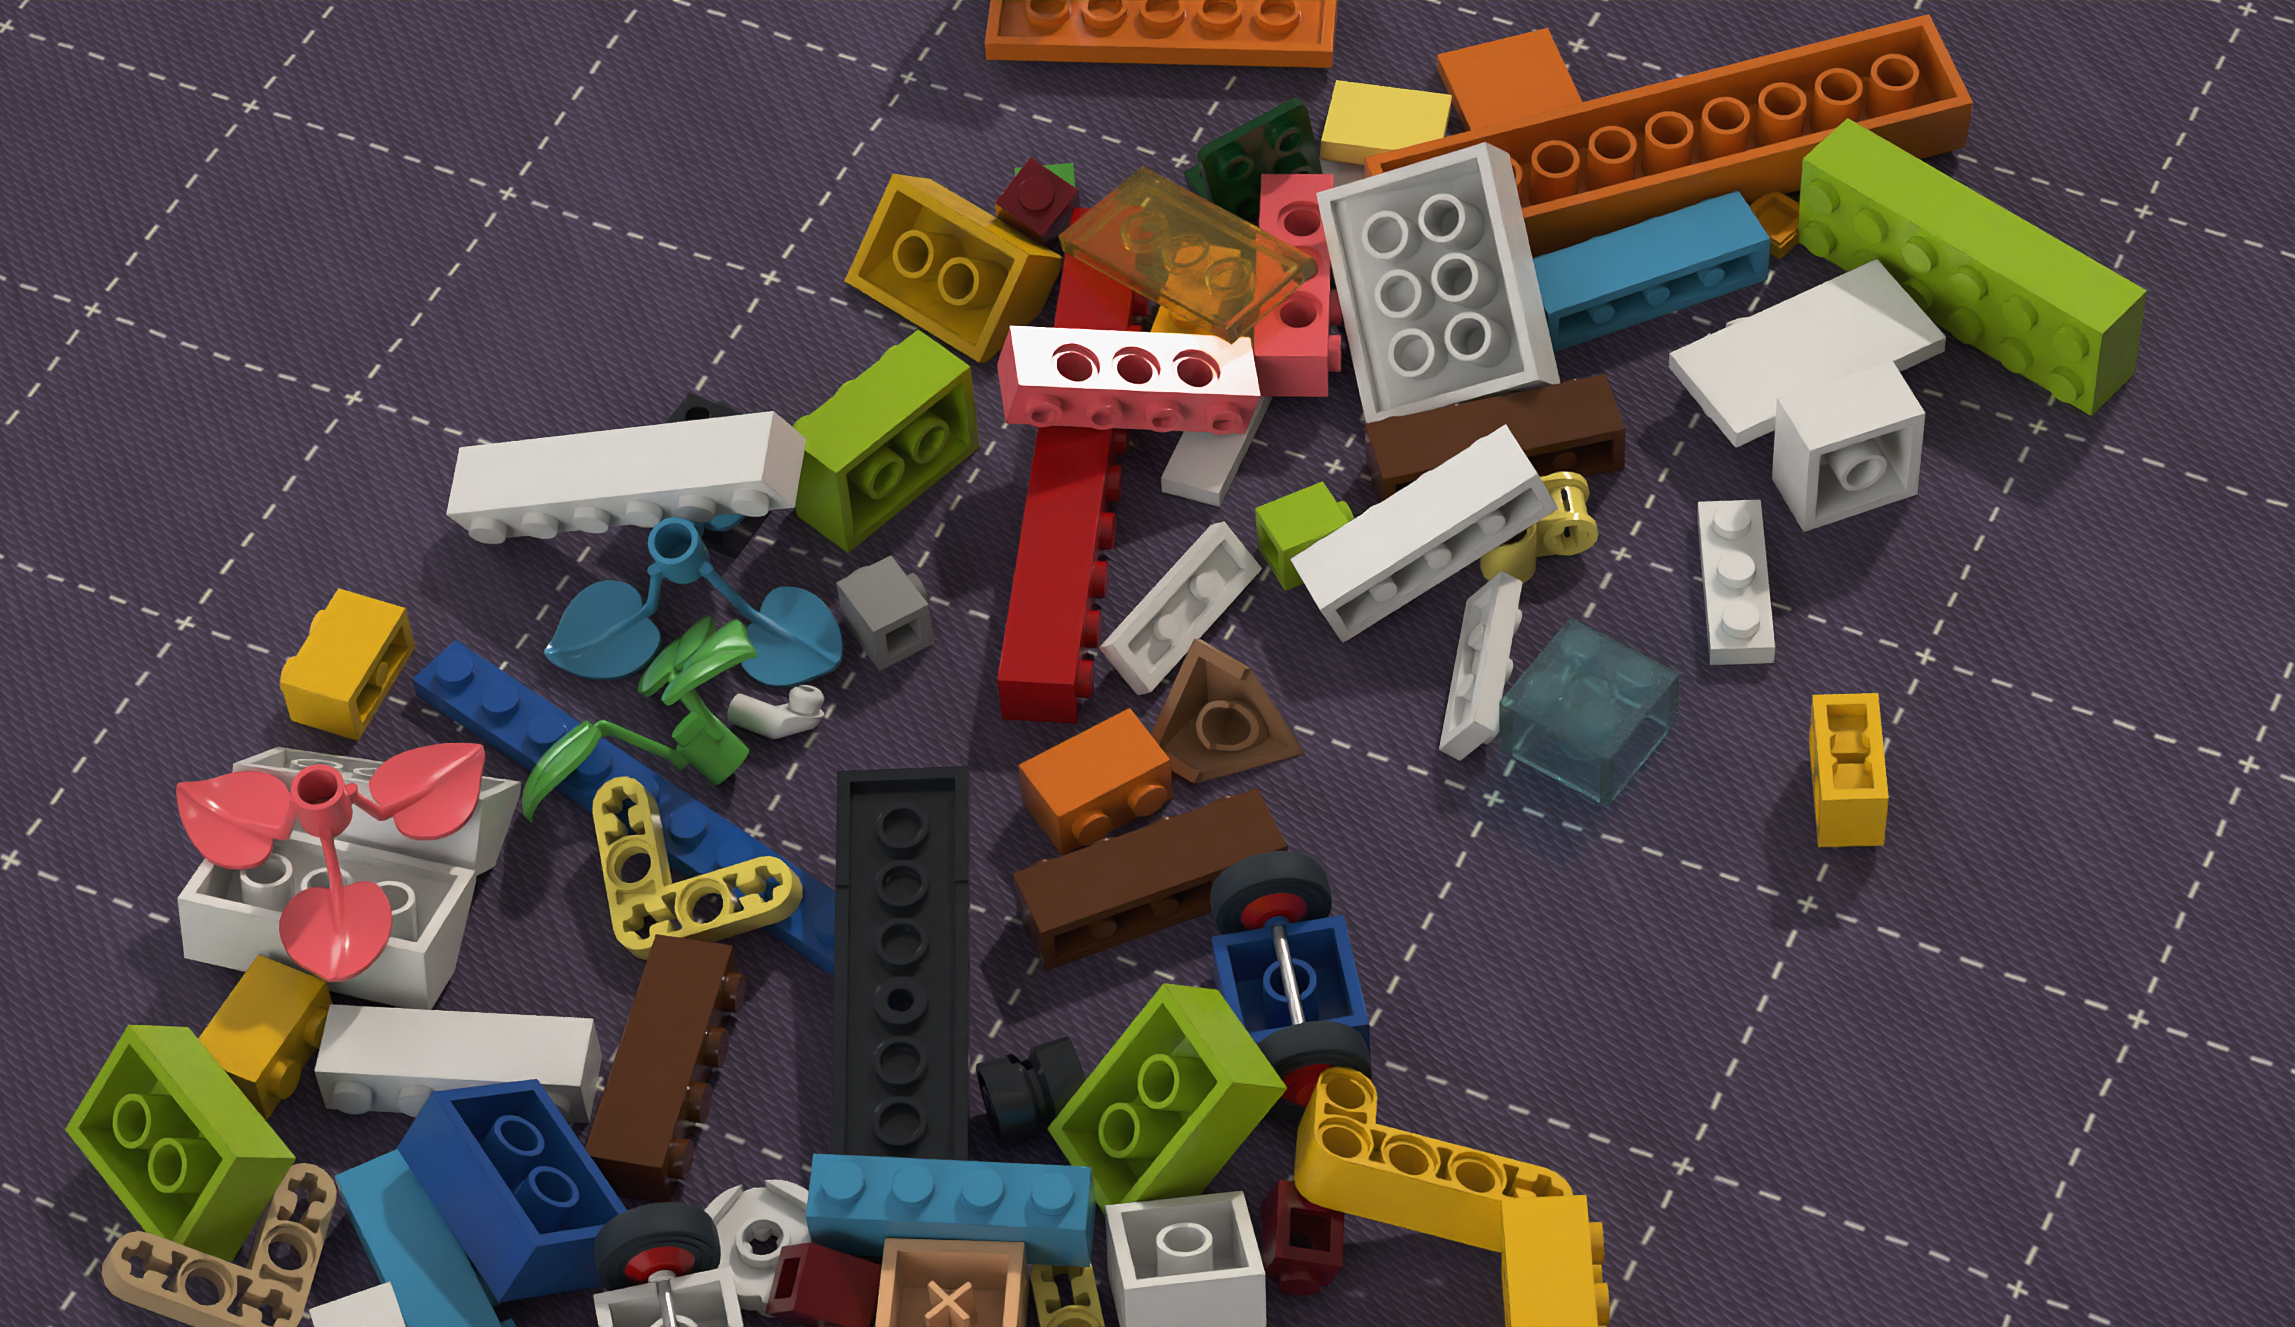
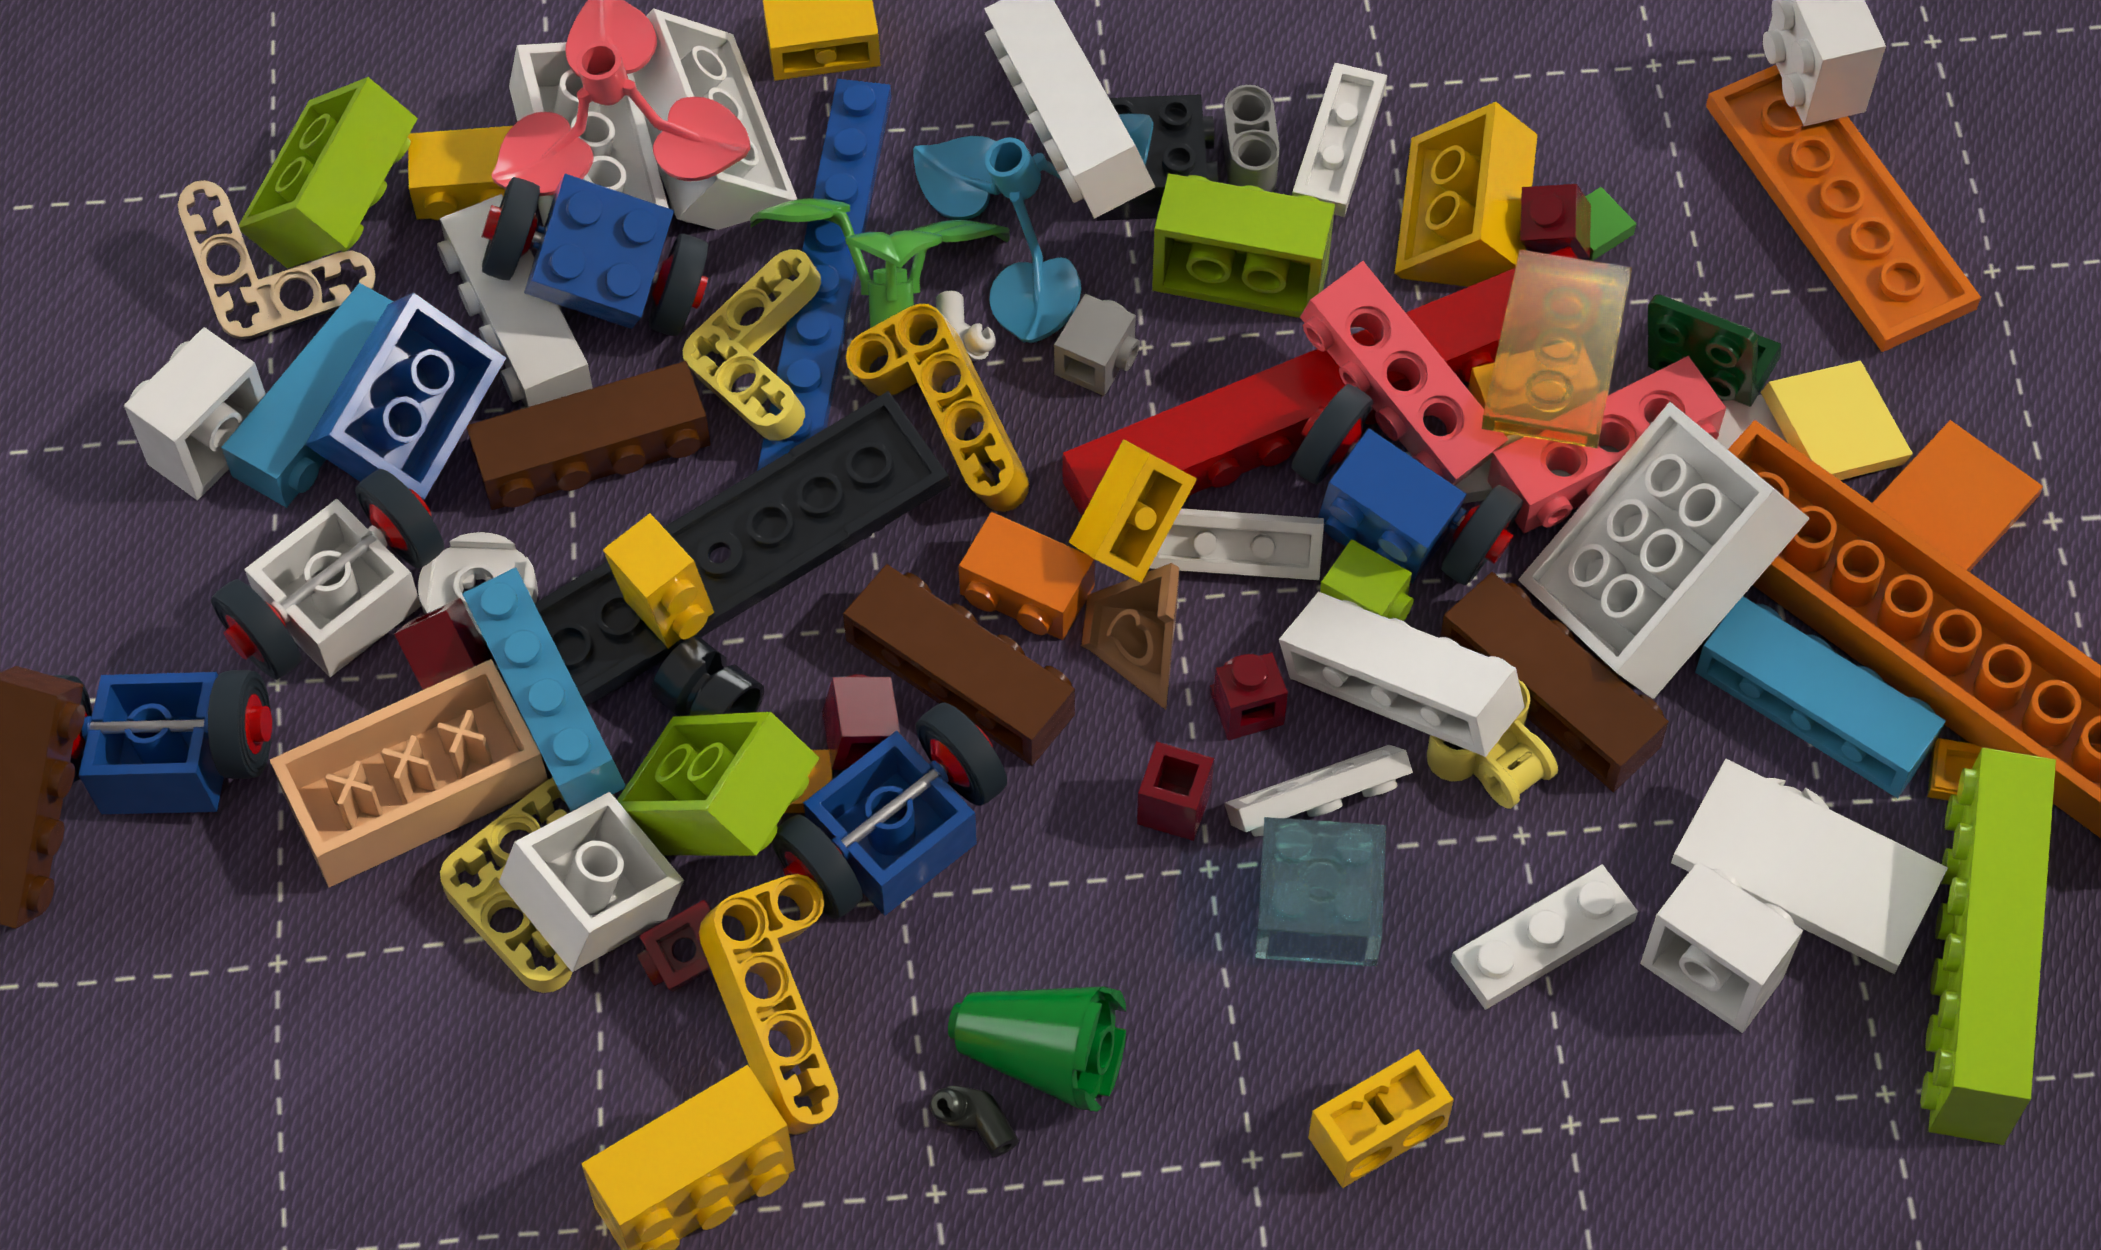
camera: 55 degrees right, 10 degrees up
(481, 940) = (597, 253): none -> blue brick
(758, 382) = (1251, 140): none -> light grey beam
(804, 324) = (1340, 136): none -> white plate
(883, 727) = (952, 410): none -> yellow beam
(924, 1038) = (659, 581): none -> yellow brick
(1115, 642) = (1132, 511): none -> yellow brick
(1149, 962) = (858, 717): none -> brick
(1239, 447) = (1393, 499): none -> brick
(1348, 669) = (1245, 684): none -> dark red brick
(1415, 766) = (1175, 791): none -> dark red brick
(1599, 984) = (1046, 1038): none -> green cone
(1628, 1086) = (977, 1112): none -> pearl dark grey arm

